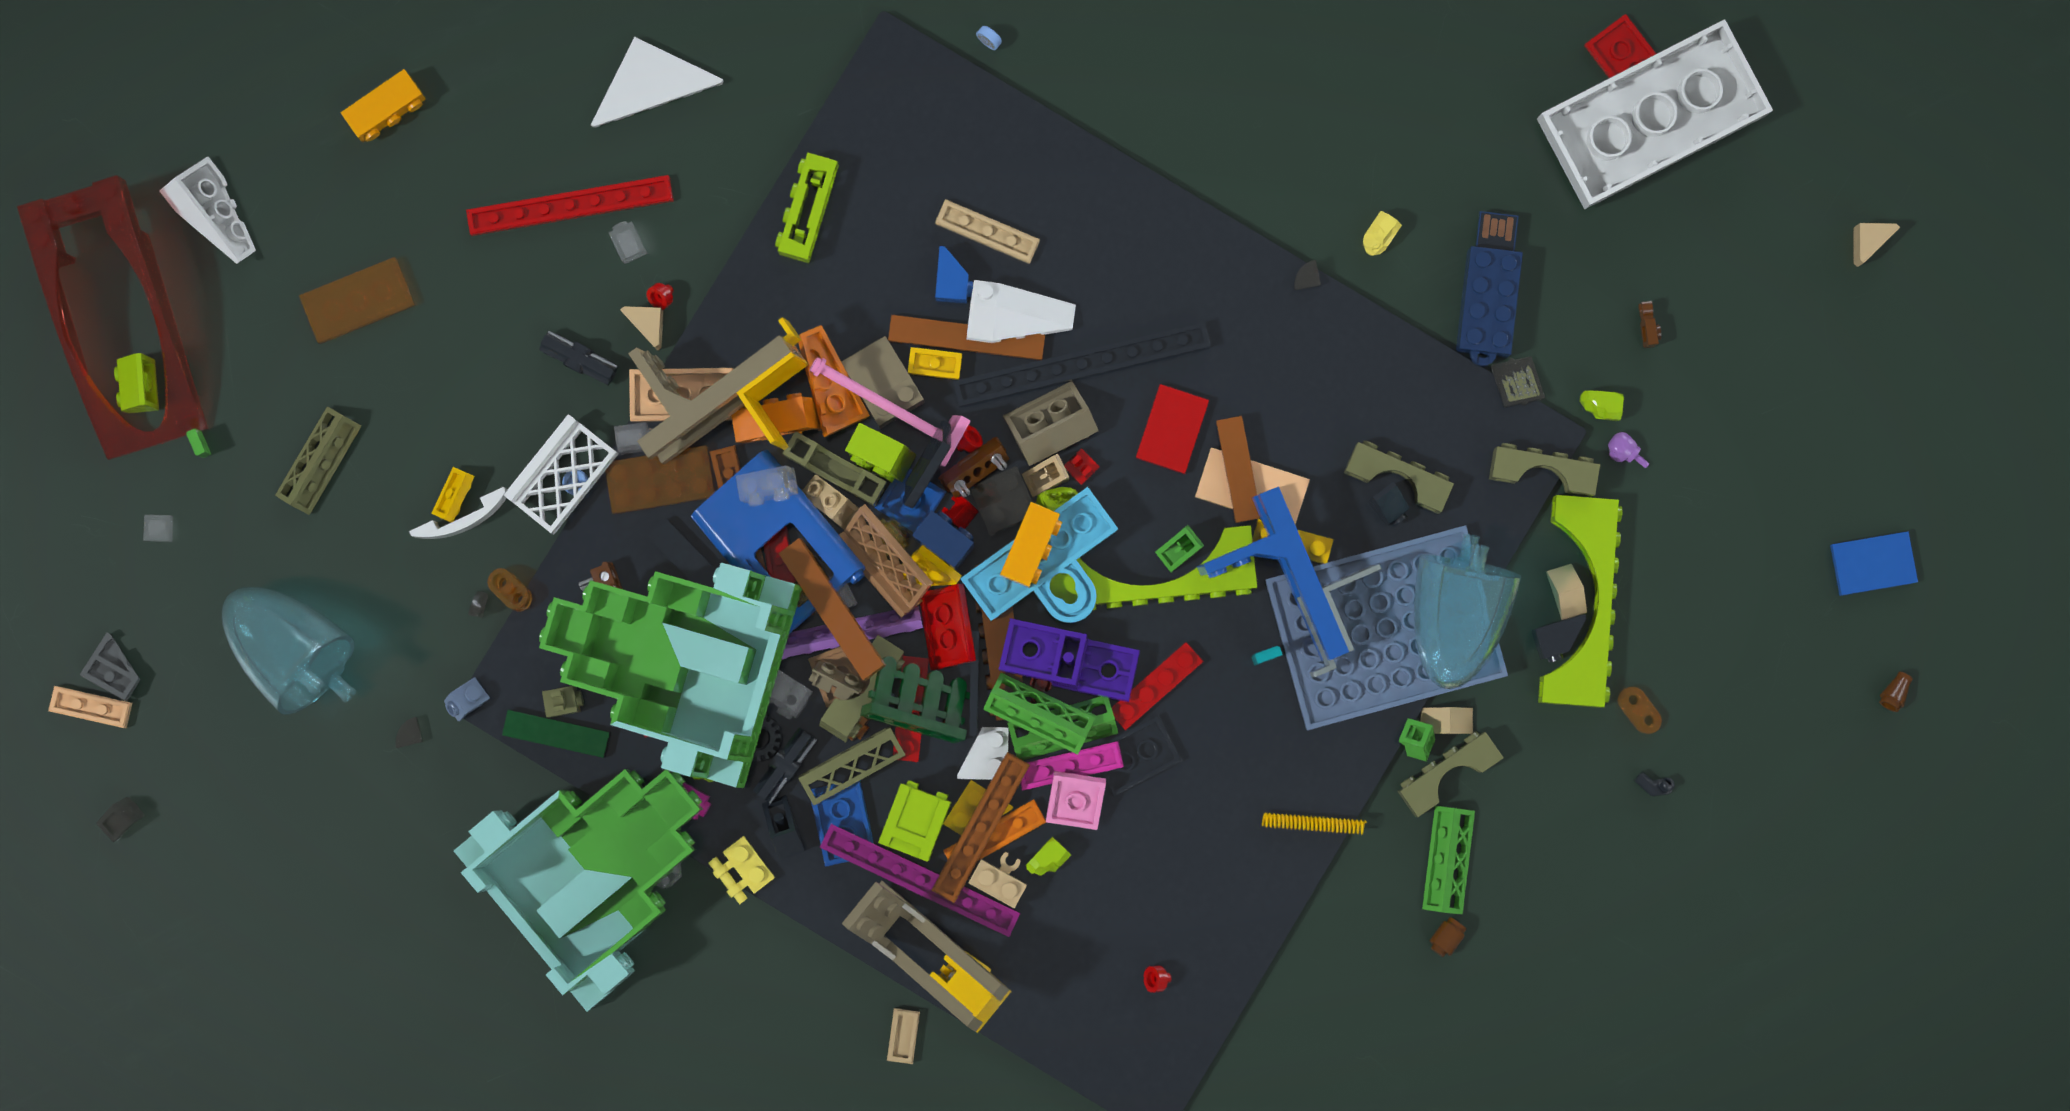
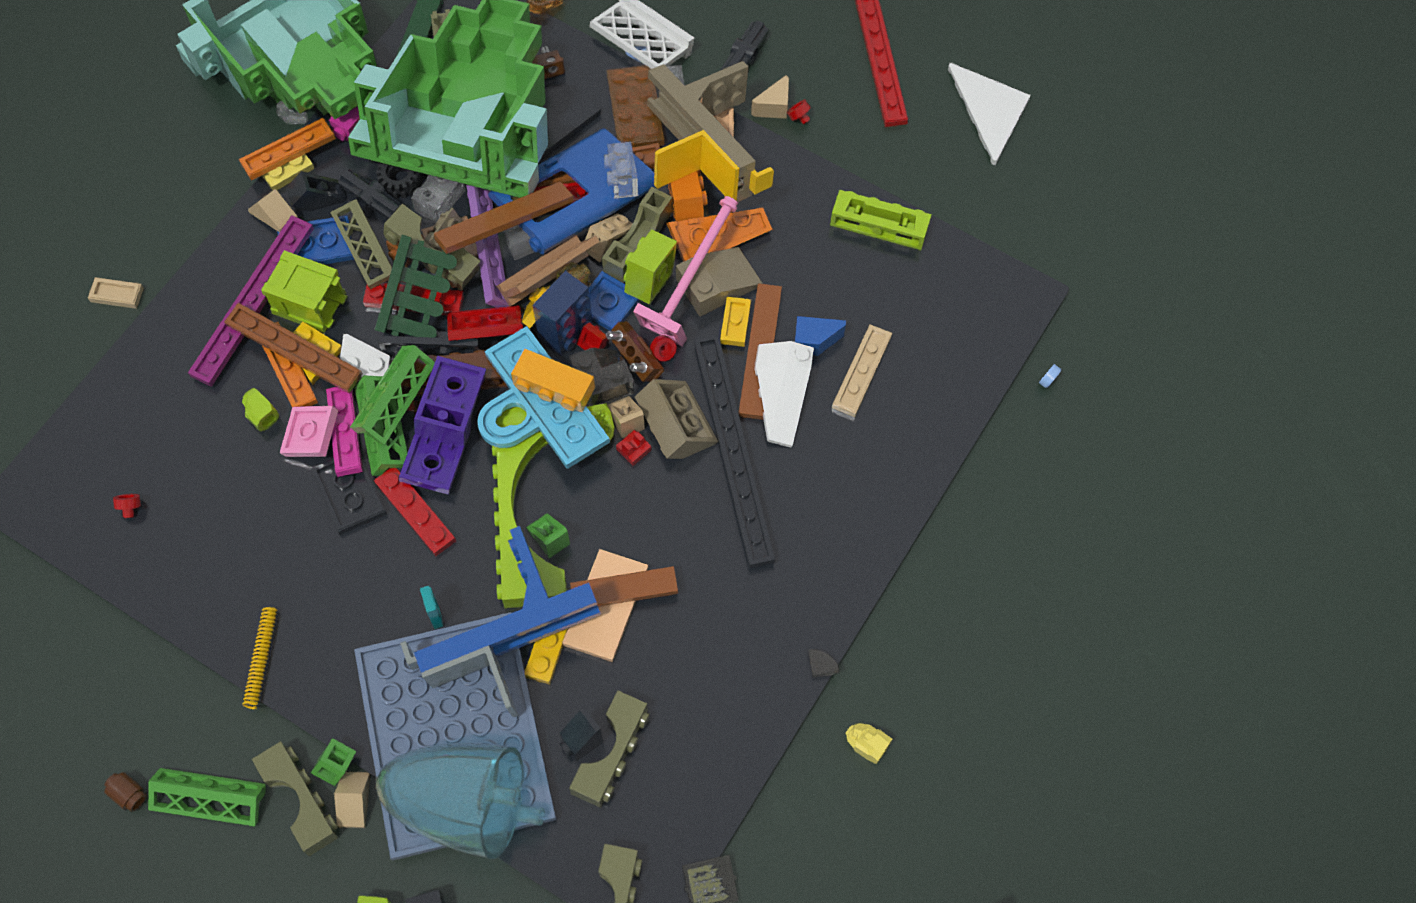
camera: 90 degrees right, 20 degrees down
(627, 242) = (846, 87): clear brick -> none
(730, 863) = (287, 149): none -> orange tile
(808, 872) = (272, 210): none -> tan slope
(927, 464) = (633, 295): black tile -> none
(962, 986) = (131, 311): dark tan piece -> none
(999, 881) = (240, 364): tan brick -> none
(1172, 429) = (668, 530): red tile -> none
(1490, 290) = (810, 854): dark blue piece -> none

